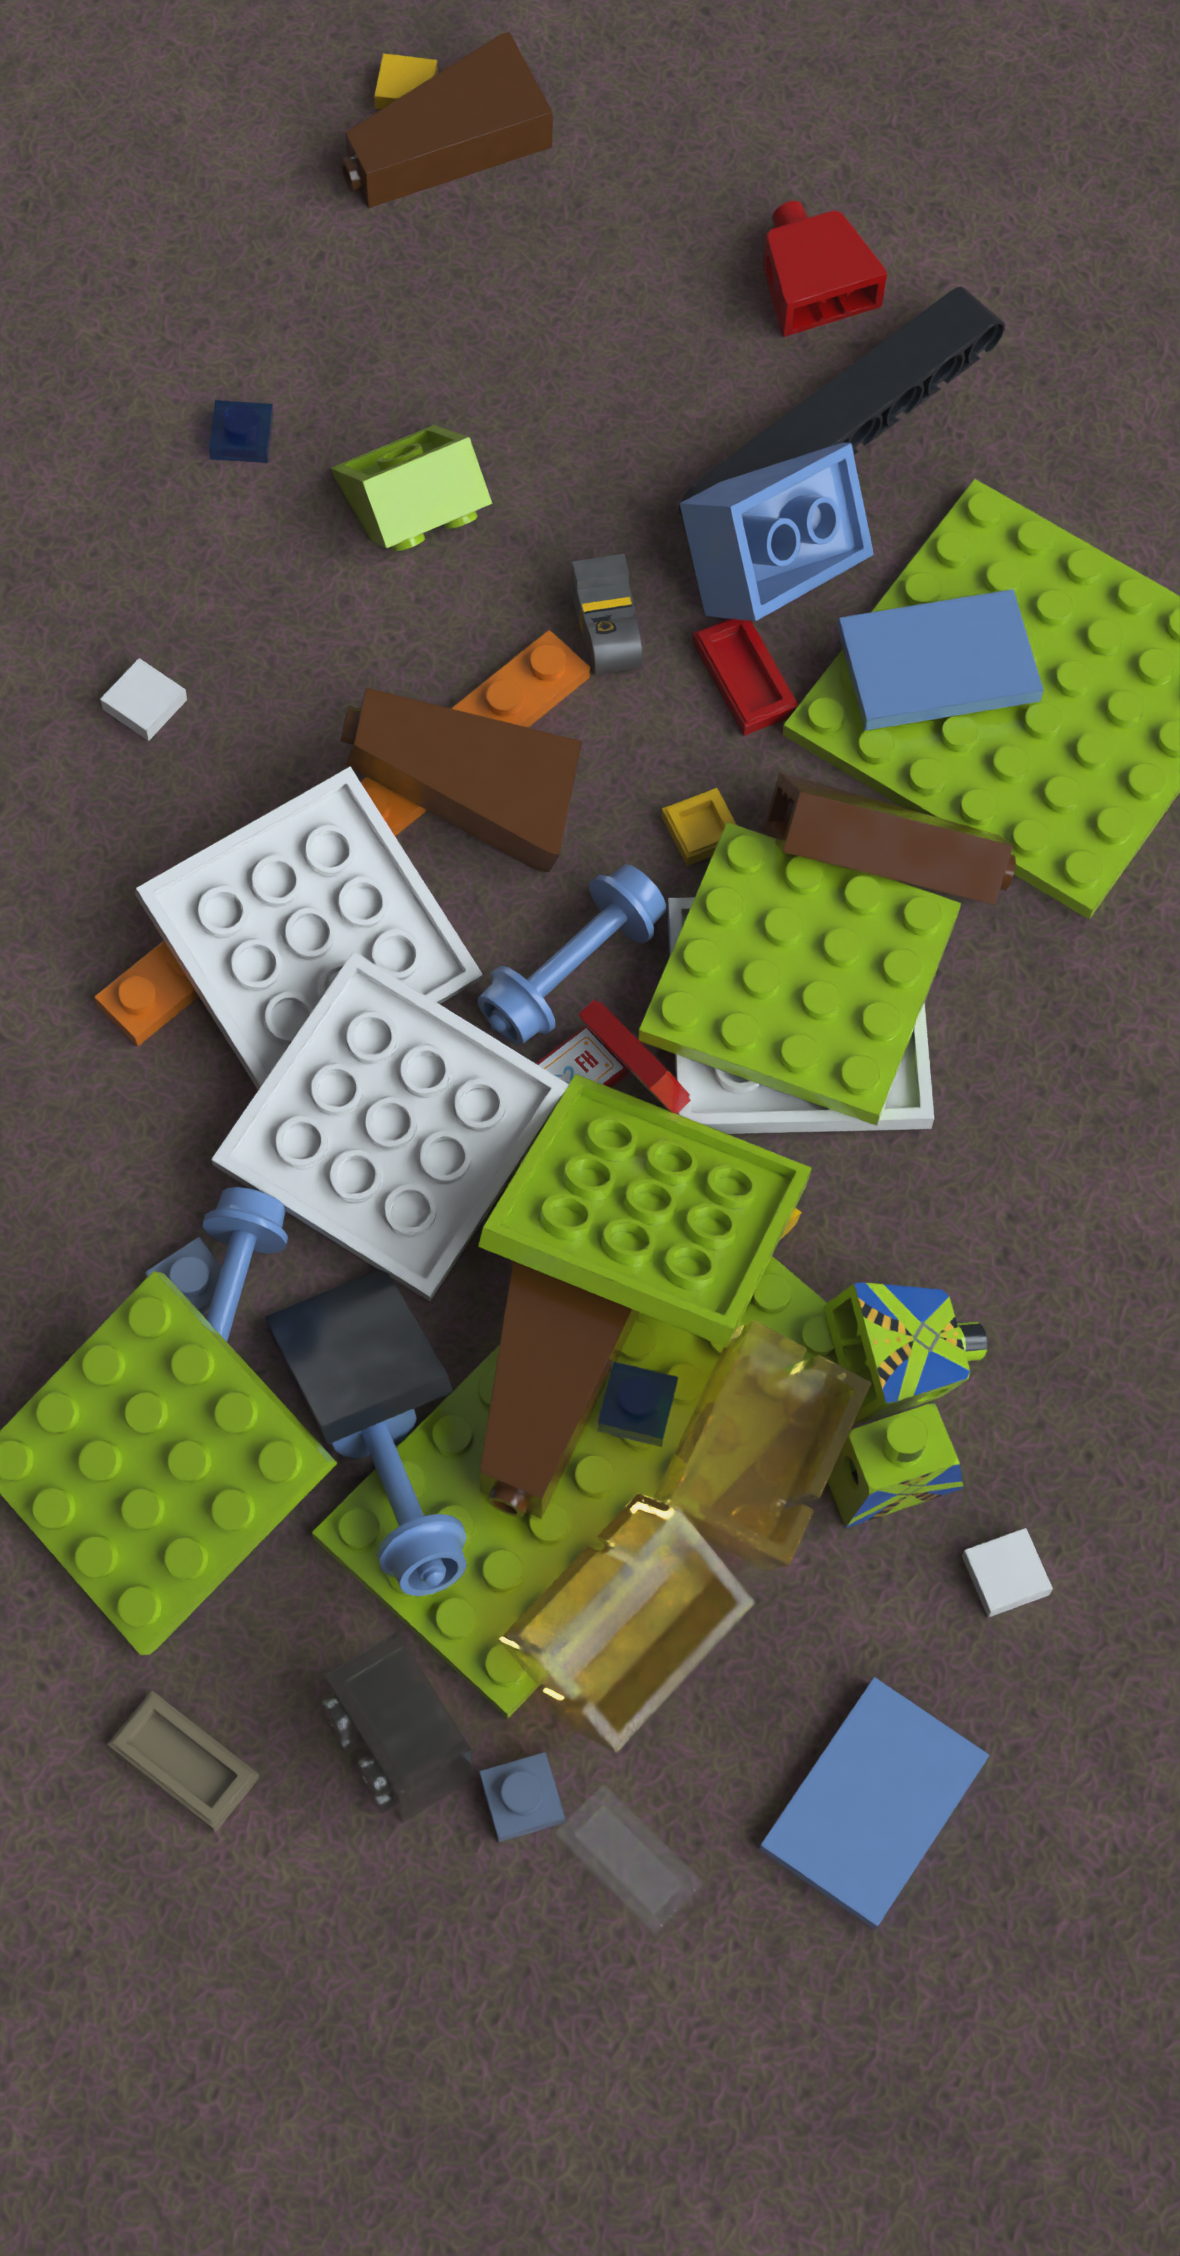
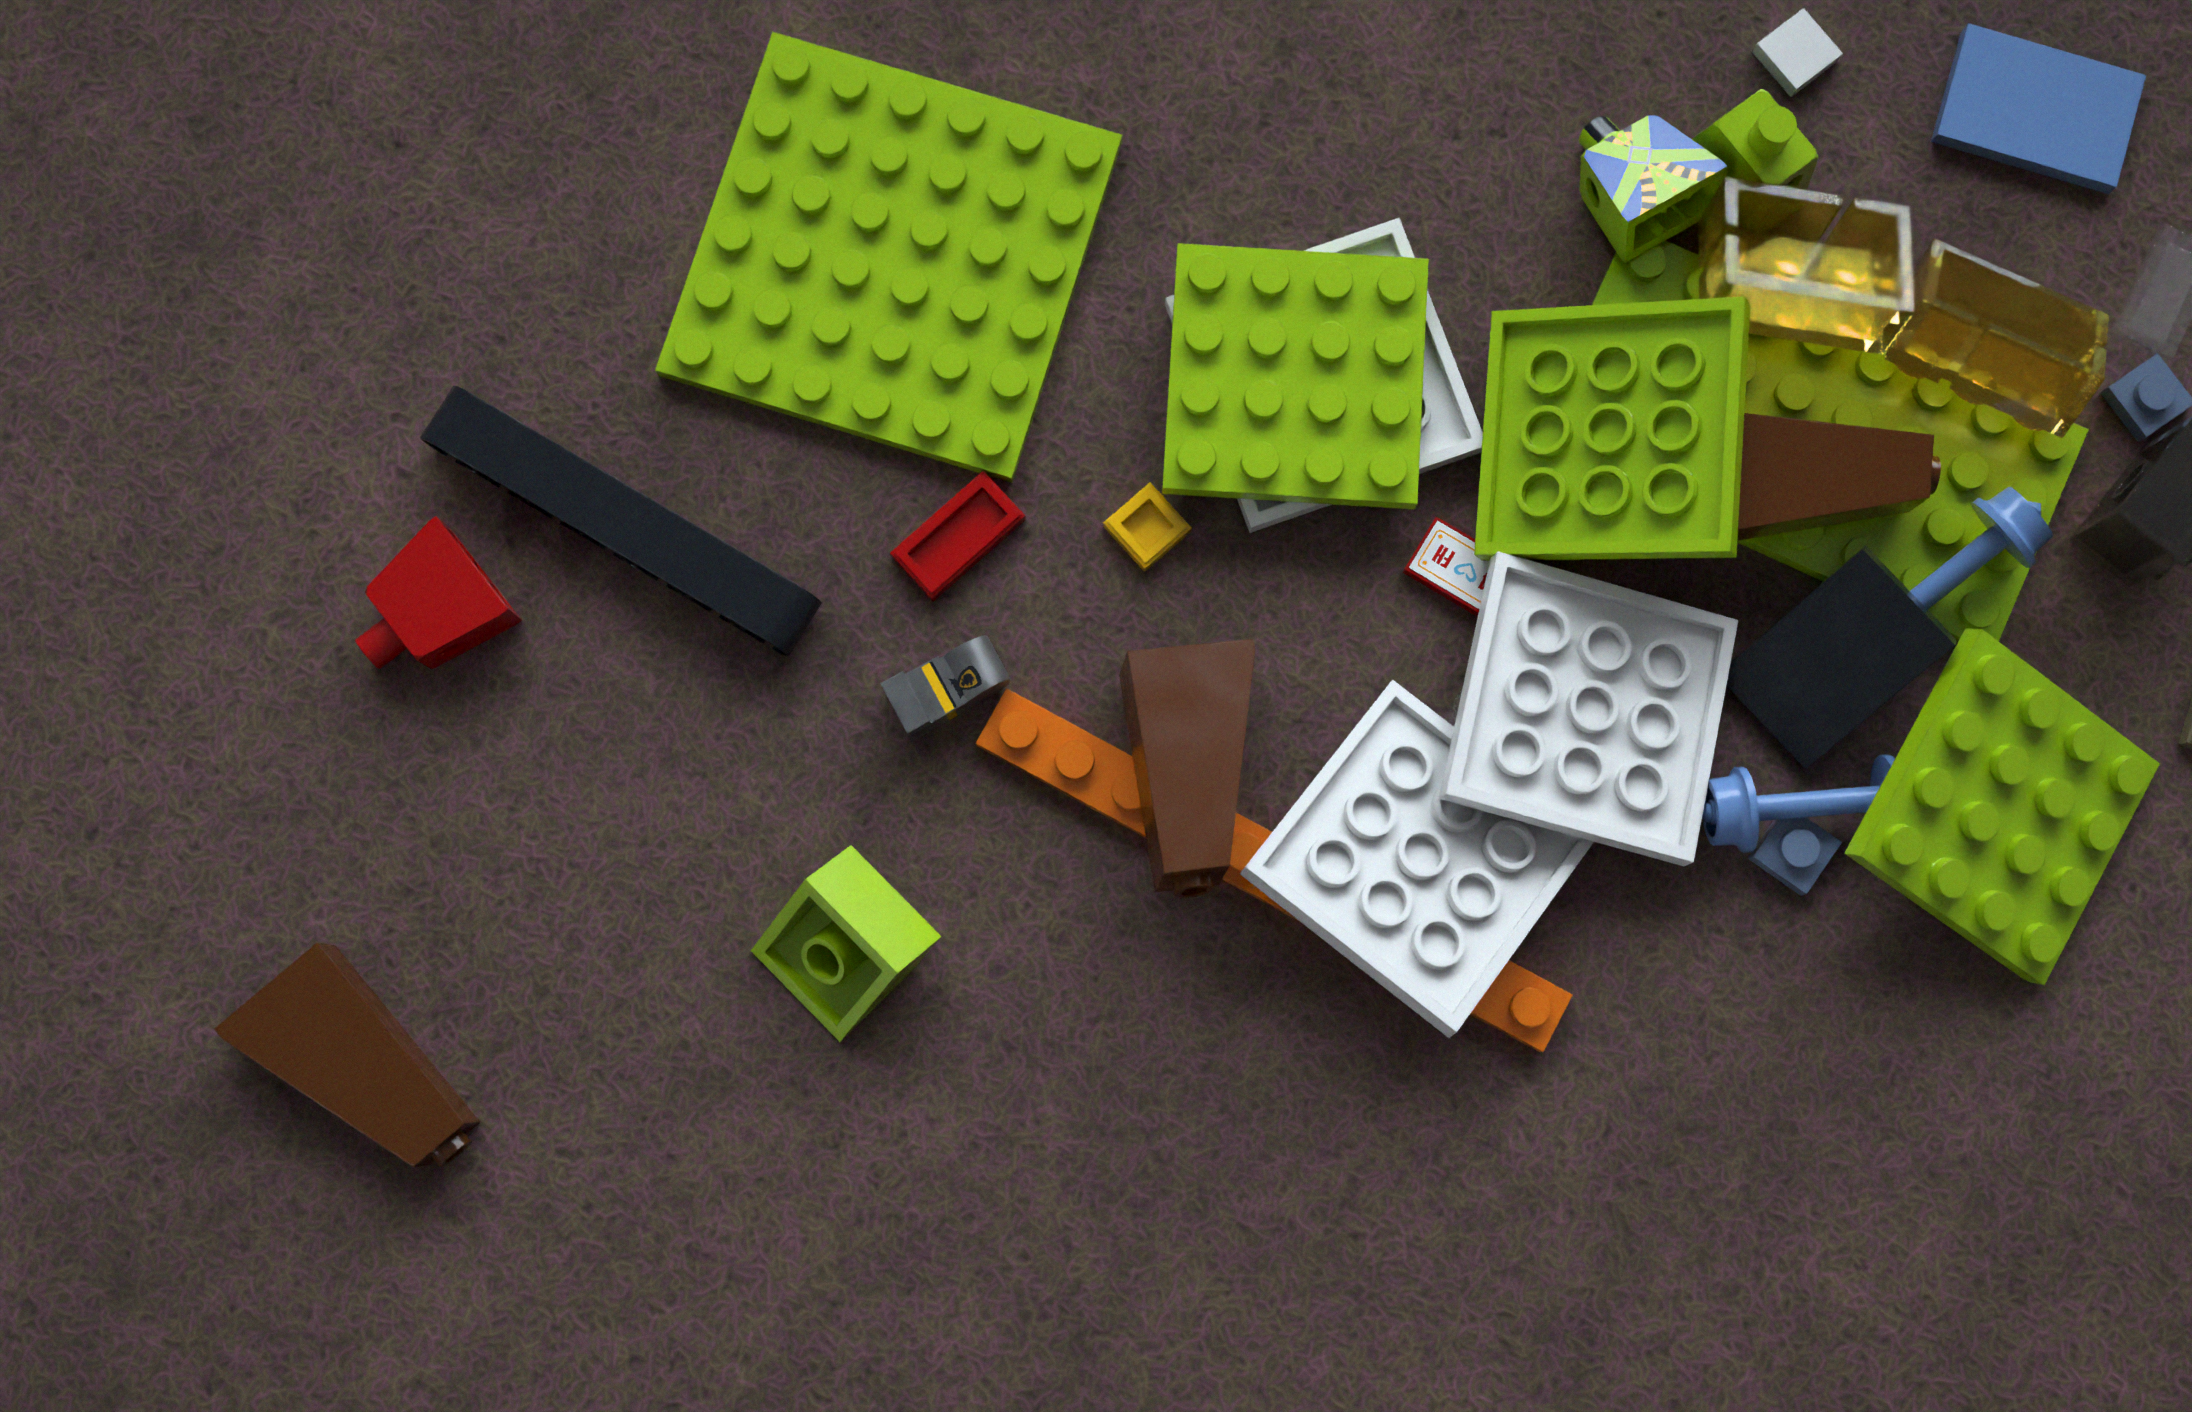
camera: 105 degrees left, 15 degrees up
(143, 699) = (1188, 1133): white tile -> none
(241, 431) = (825, 1152): clear blue plate -> none
(401, 75) = (296, 1137): yellow tile -> none
(518, 1005) = (1421, 635): medium blue piece -> none
(635, 1056) = (1440, 503): red tile -> none
(637, 1404) = (1784, 390): plate -> none
(776, 532) = (809, 537): medium blue slope -> none
(887, 840) = (1127, 341): reddish brown slope -> none
(939, 659) = (901, 338): medium blue tile -> none

